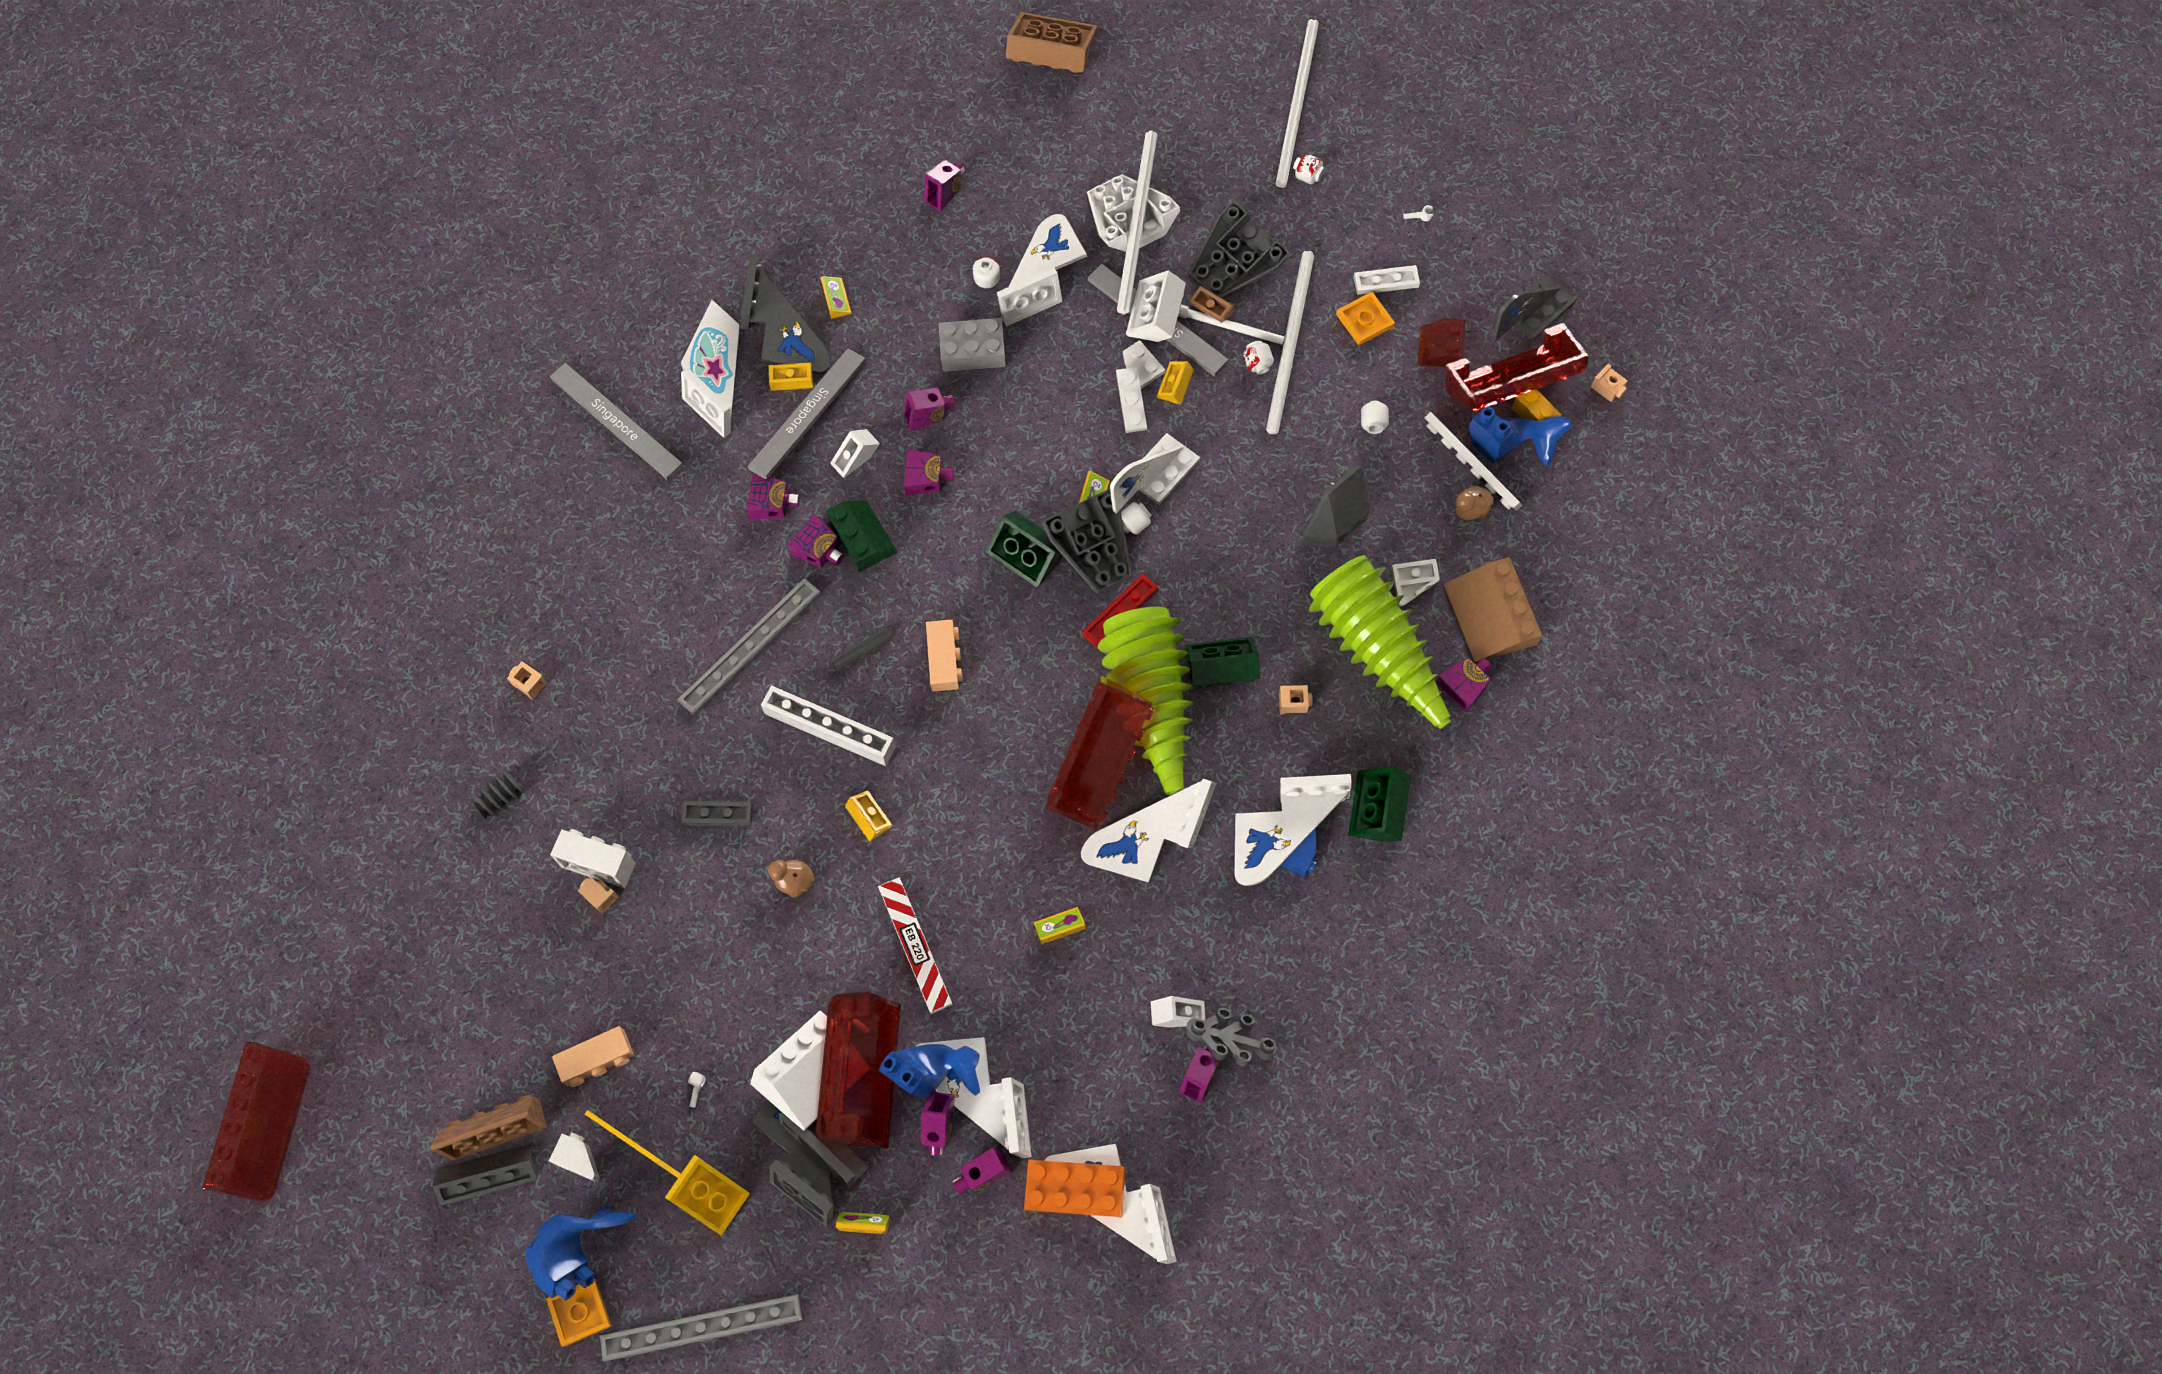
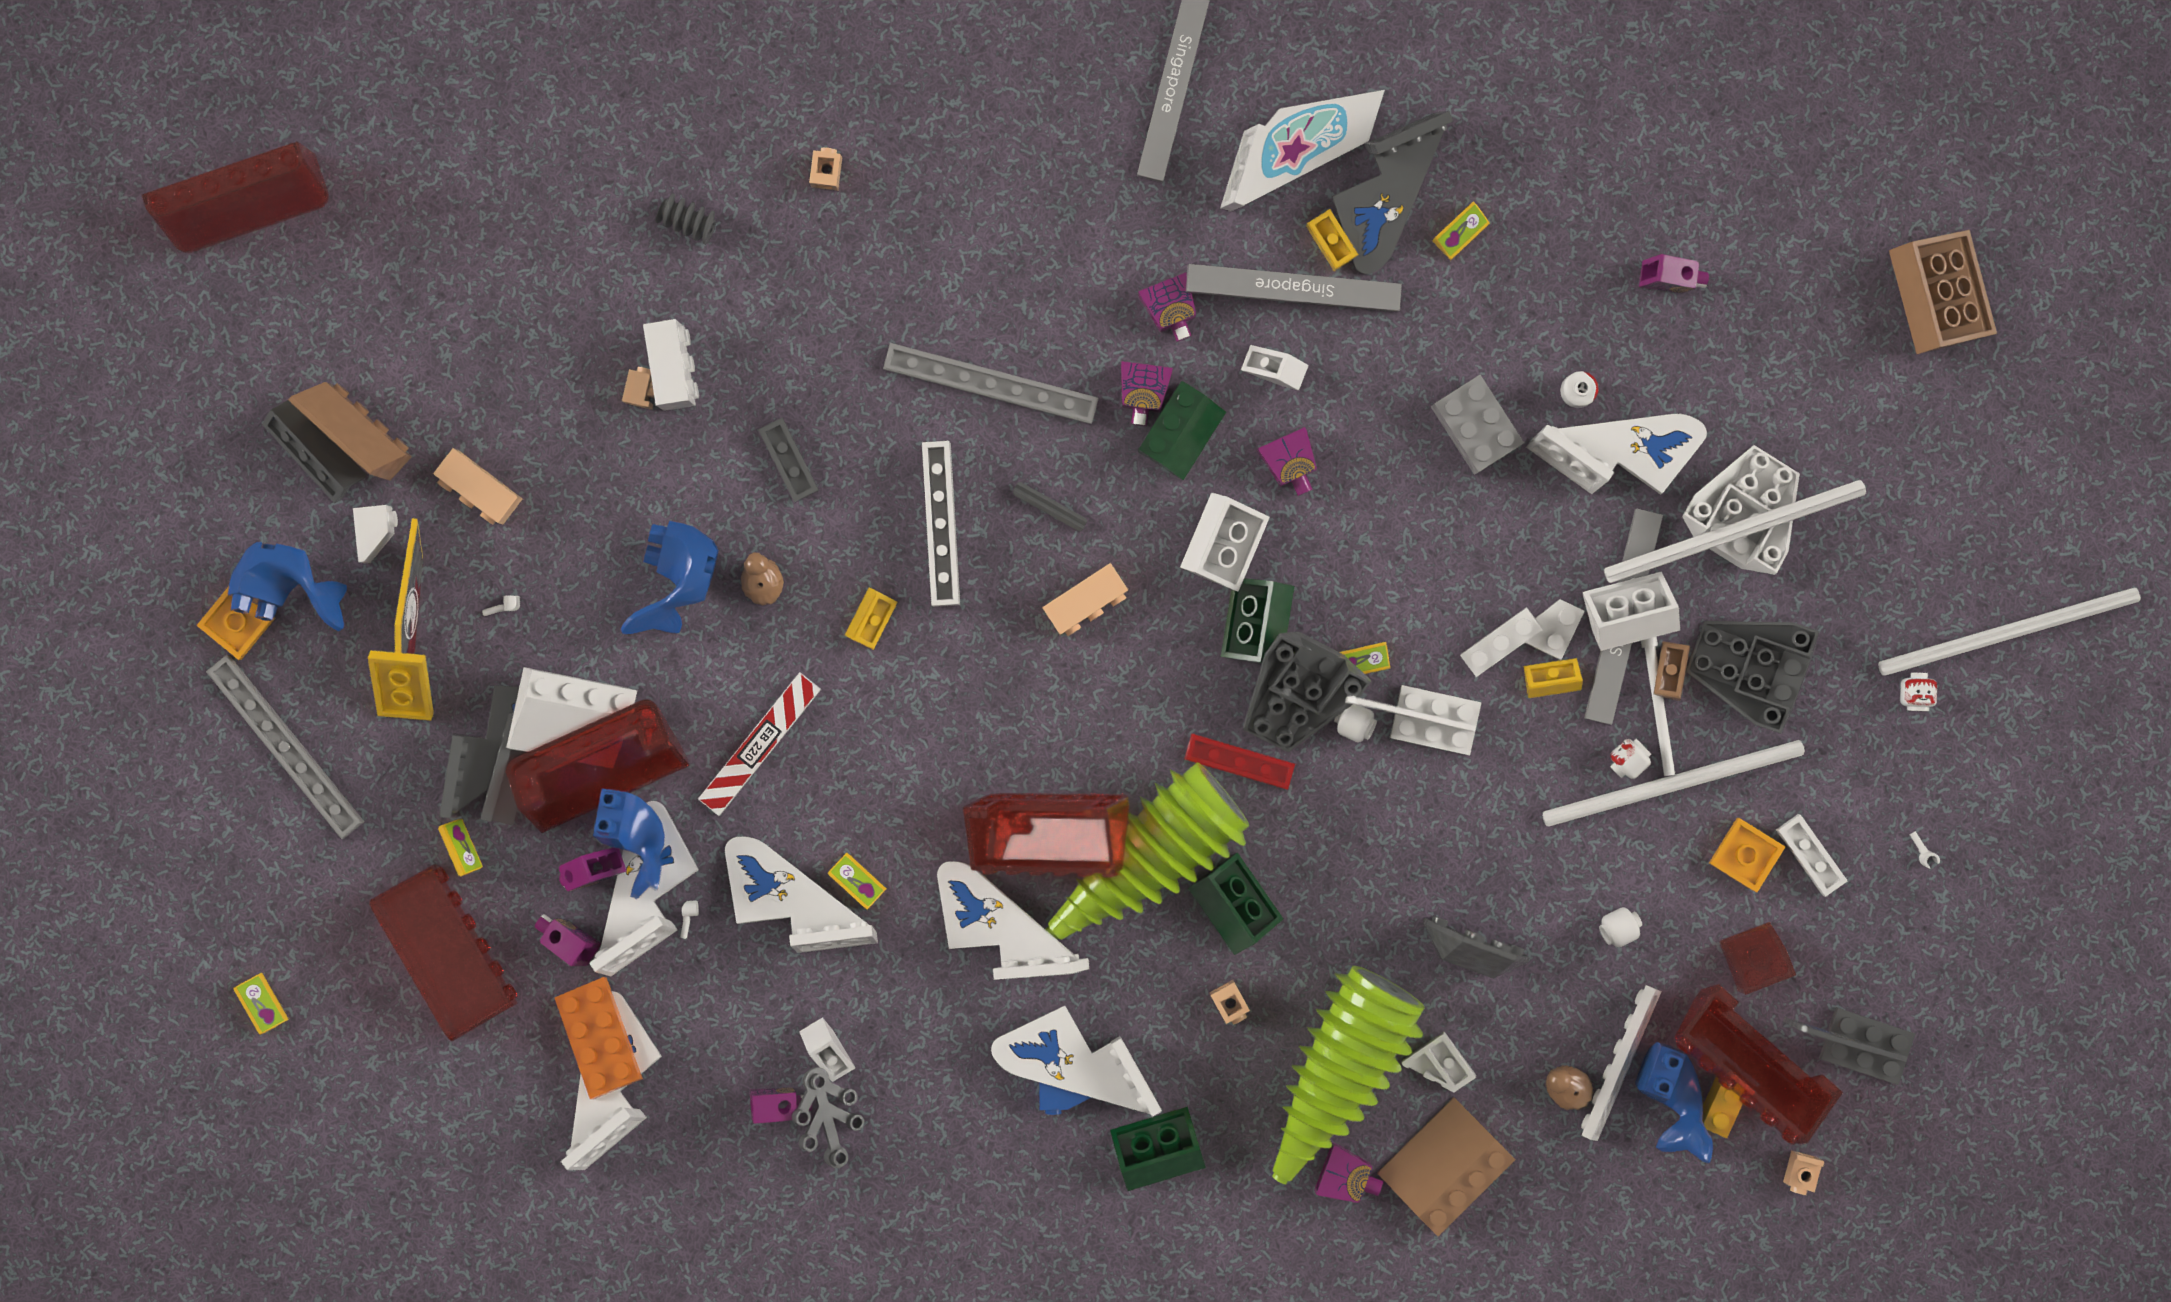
camera: 60 degrees right, 20 degrees up
(747, 921) = (689, 562): none -> blue hips
(925, 407) = (1362, 410): magenta torso -> none
(938, 1277) = (443, 952): none -> clear red windscreen
(956, 541) = (1224, 541): none -> white slope
(1012, 1065) = (689, 909): none -> white hand
(1030, 990) = (772, 889): none -> white piece

